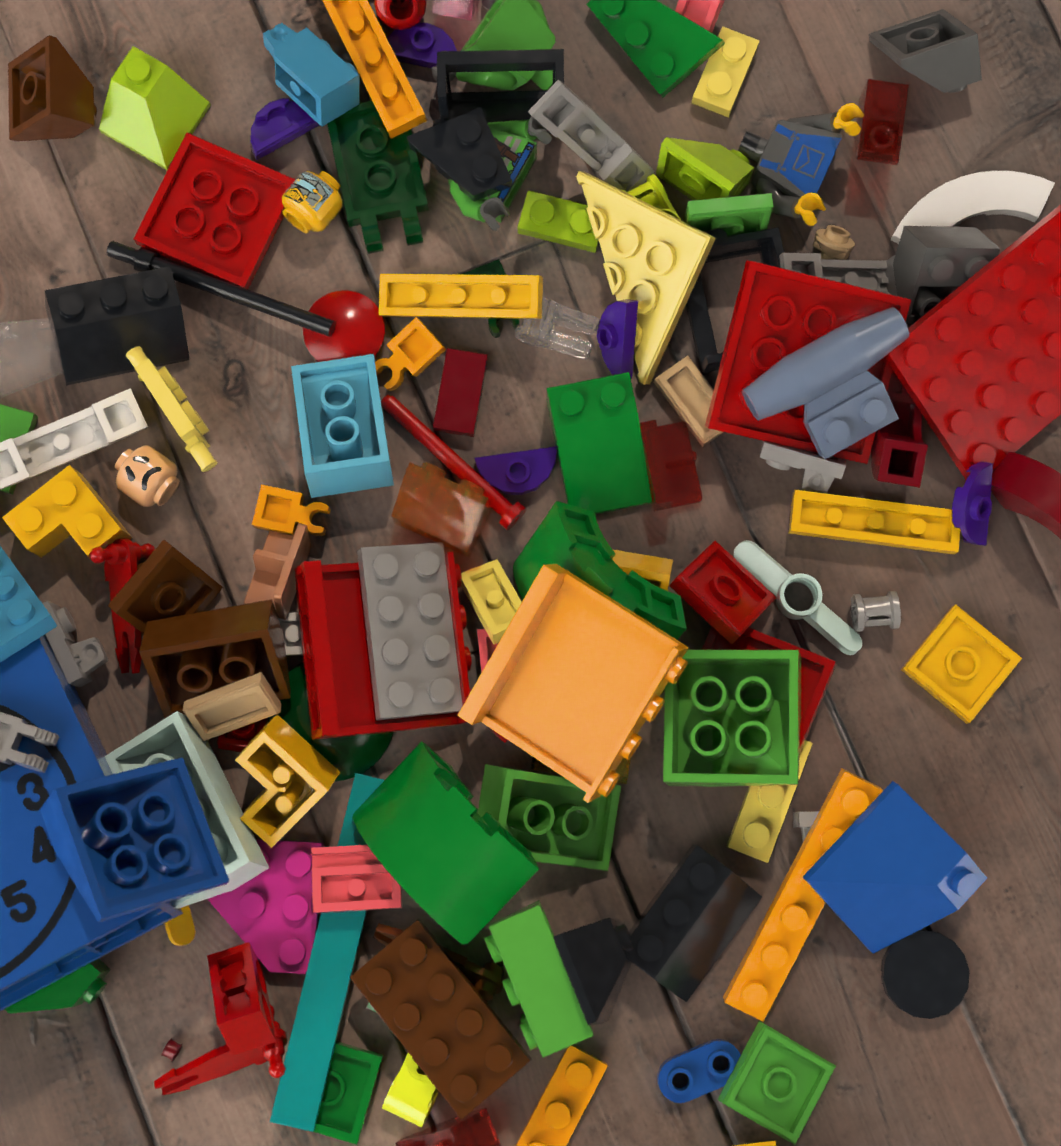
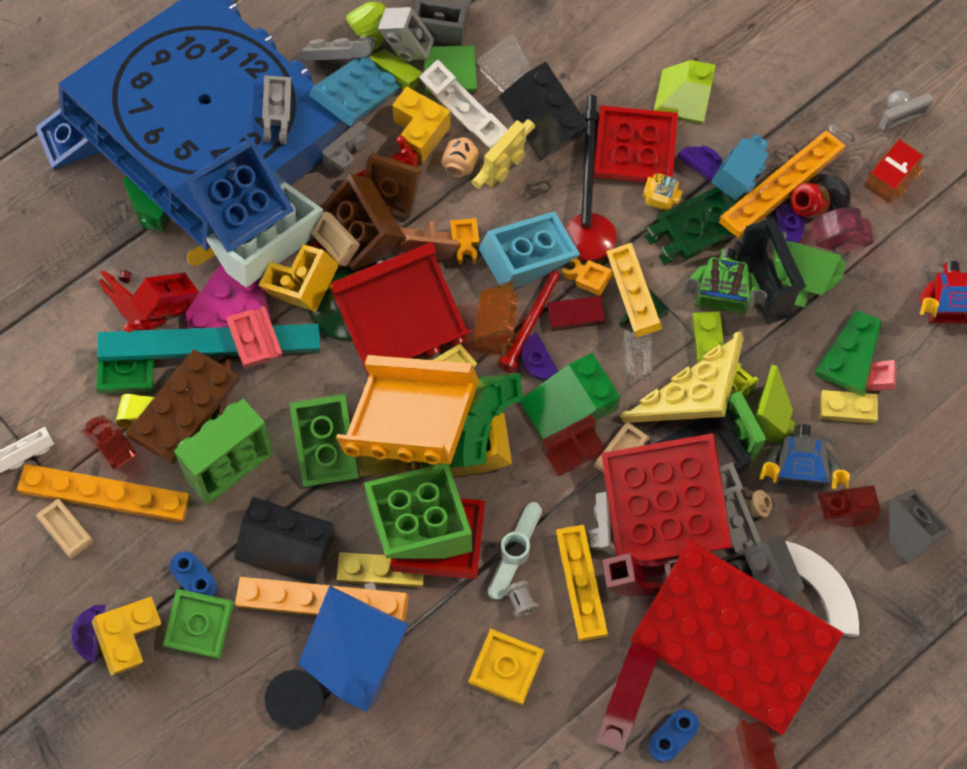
camera: 70 degrees right, 15 degrees down
(48, 94) = (670, 36): reddish brown slope -> none
(409, 630) = (415, 320): light grey plate -> none
(440, 847) = (284, 371): green panel -> none
(465, 153) = (723, 262): black wing -> none
(590, 137) = (763, 325): light grey slope -> none
(596, 965) = (236, 475): black slope -> none
(617, 336) = (643, 388): dark purple plate -> none
(722, 592) = (500, 497): red plate -> none
(833, 382) = (656, 514): sand blue plate -> none
(973, 504) = (613, 636): dark purple plate -> none

